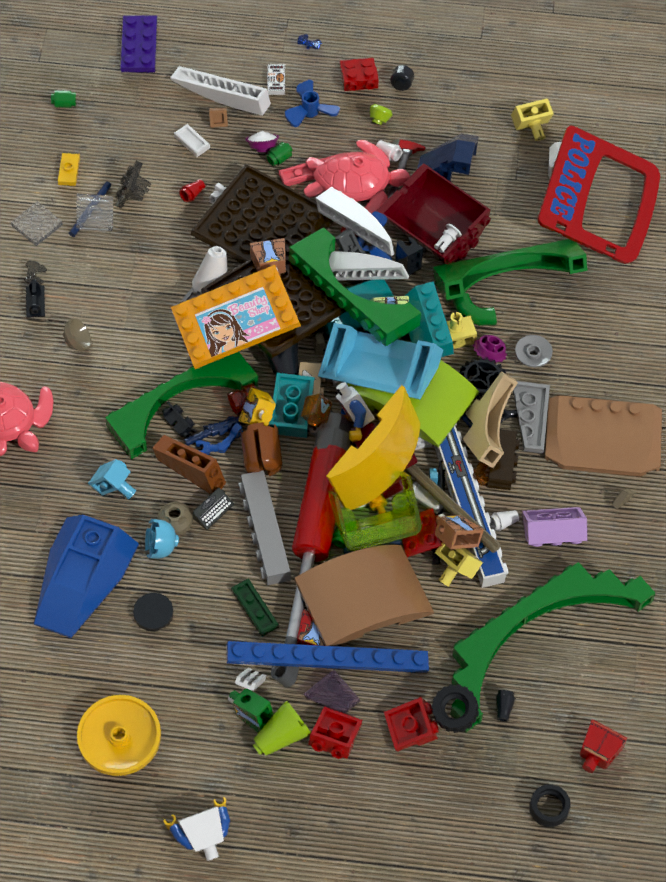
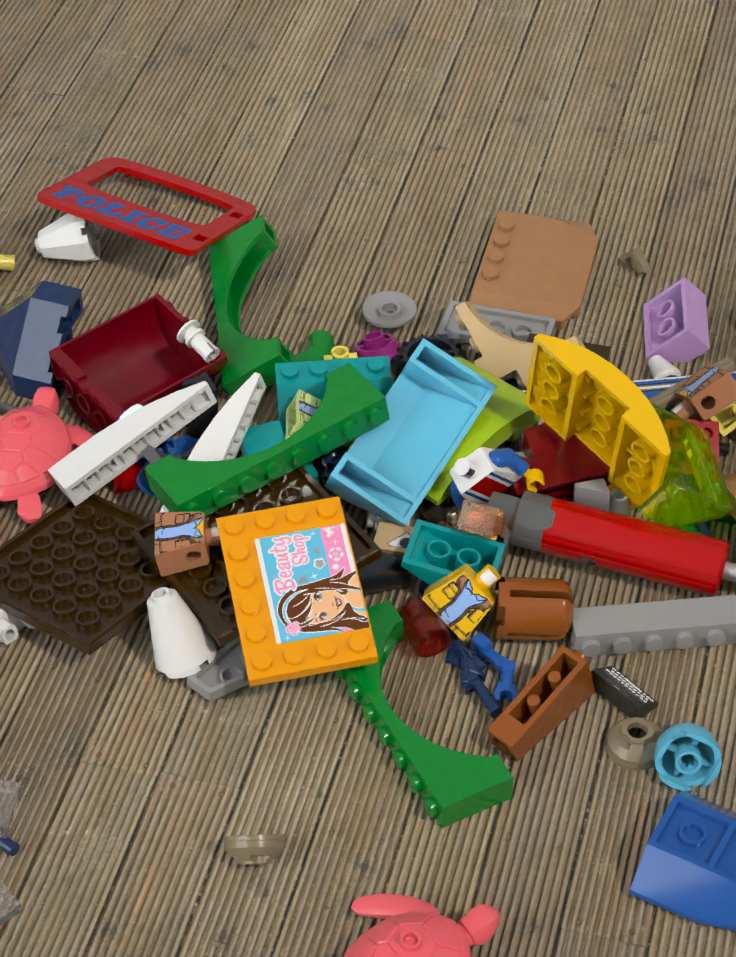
camera: 80 degrees left, 15 degrees down
(34, 267) = (77, 910): clear smoke piece -> none
(35, 299) = (153, 914): black hinge -> none
(111, 478) = (567, 807): medium azure brick -> none
(174, 414) = (459, 711): black hinge -> none

